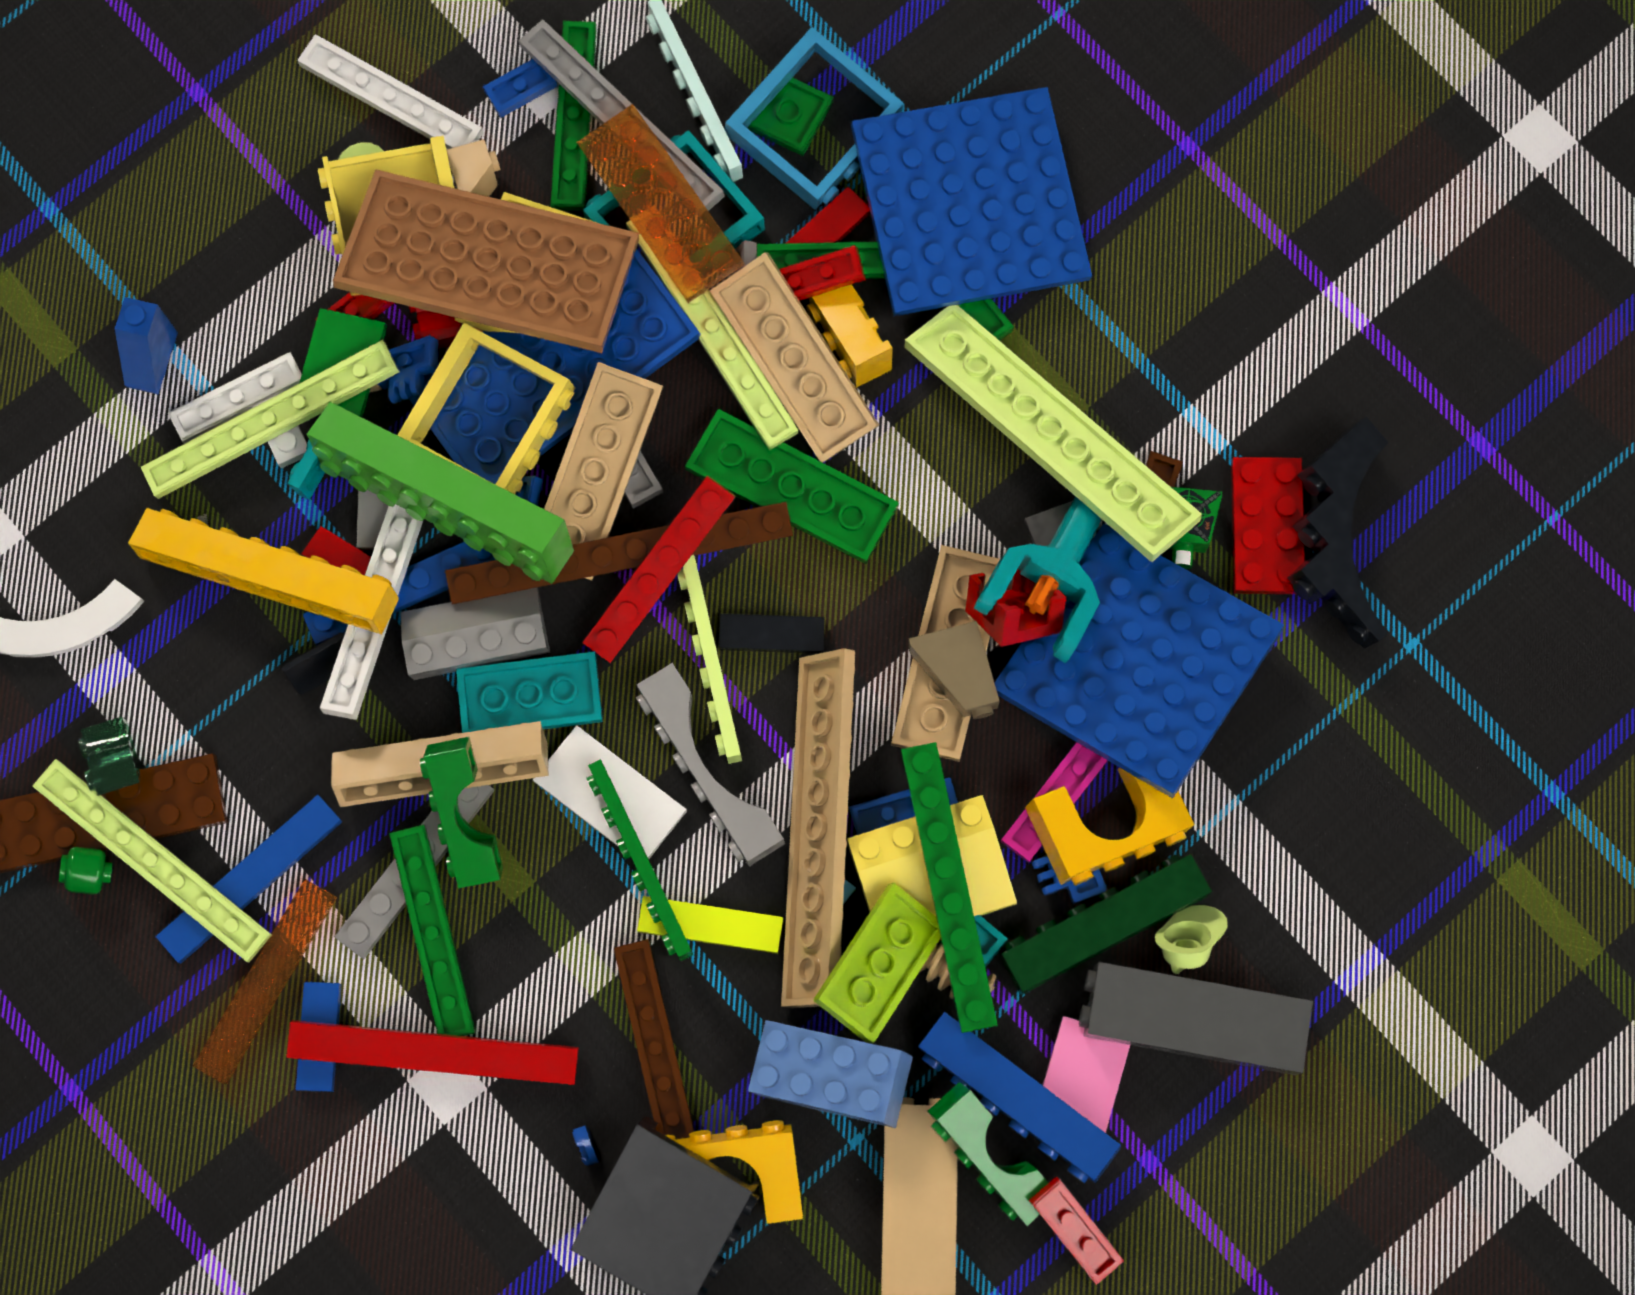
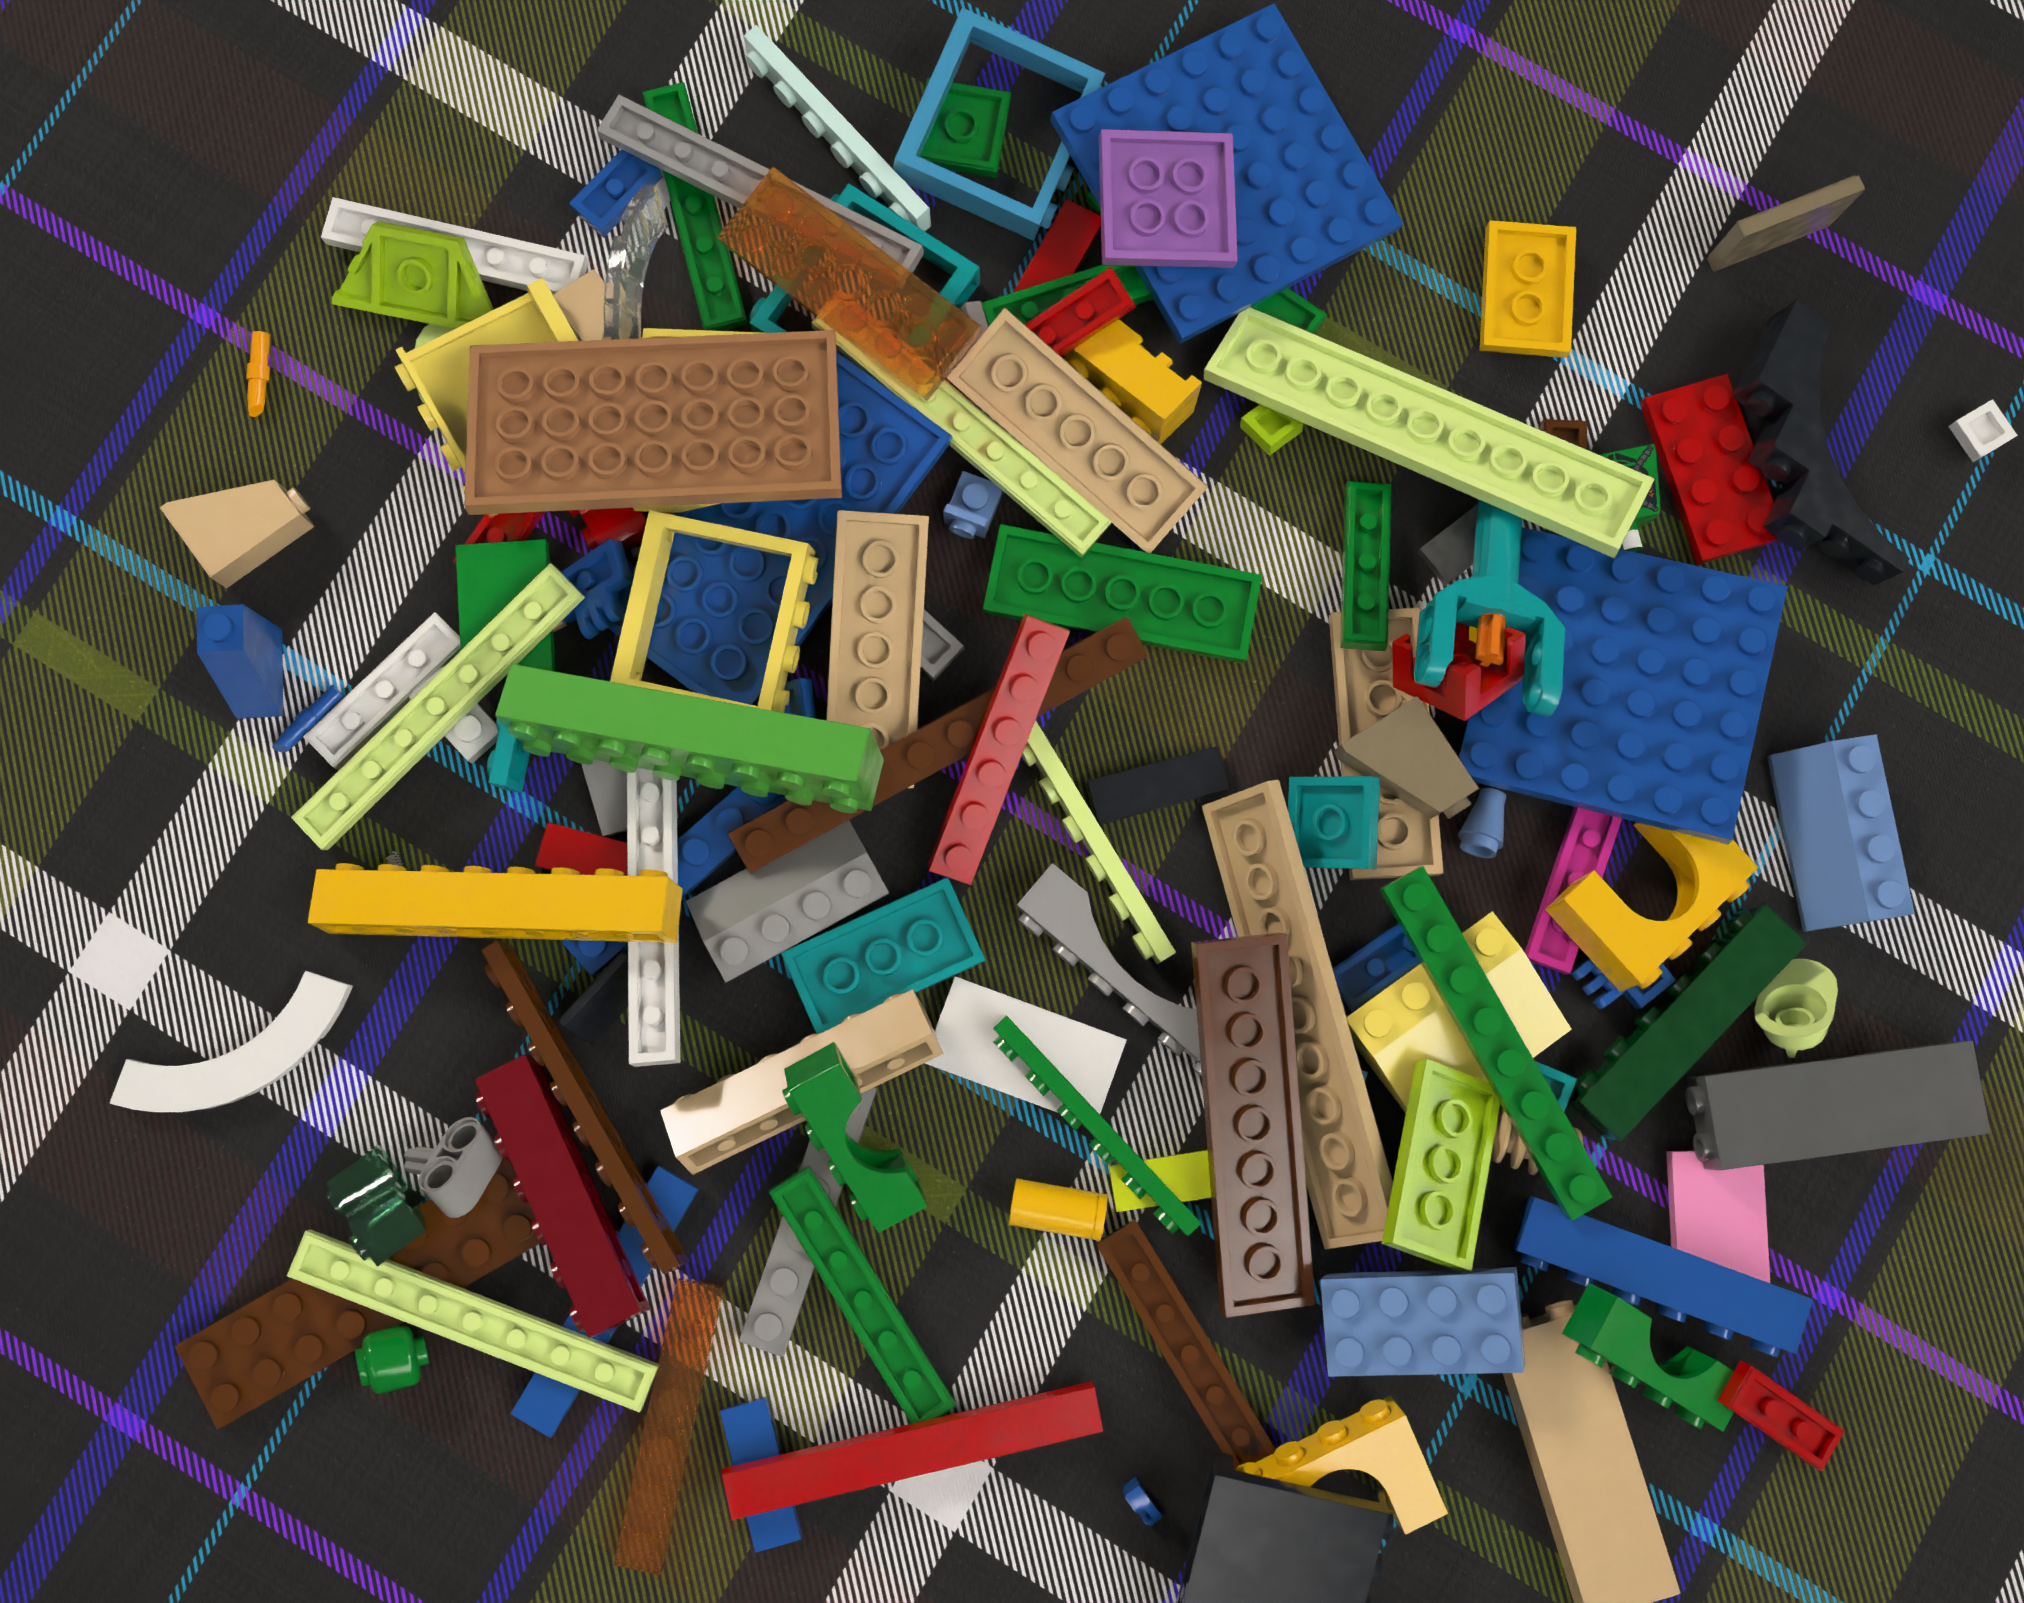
camera: 25 degrees left, 5 degrees up
(172, 250) = (239, 526): none -> tan slope
(174, 401) = (308, 719): none -> blue piece
(176, 748) = (458, 1167): none -> light grey beam
(221, 144) = (258, 372): none -> light orange piece
(242, 792) = (561, 1195): none -> dark red brick
(281, 748) = (592, 1122): none -> reddish brown plate
(354, 109) = (414, 277): none -> lime wing
(509, 141) = (629, 262): none -> clear tile
(594, 914) = (1058, 1209): none -> yellow pin
(703, 390) = (972, 506): none -> medium blue bracket
(754, 894) = (1253, 1123): none -> reddish brown plate
(889, 696) = (1335, 820): none -> teal plate
(913, 208) = (1167, 198): none -> medium lavender plate
(941, 397) = (1270, 428): none -> lime plate
(978, 518) = (1365, 566): none -> green tile
(1003, 735) = (1484, 826): none -> medium blue cone
(1171, 351) = (1528, 289): none -> yellow plate
(1268, 822) = (1840, 833): none -> medium blue slope
(1377, 358) = (1785, 223): none -> dark tan tile
(1484, 557) = (1982, 430): none -> white plate

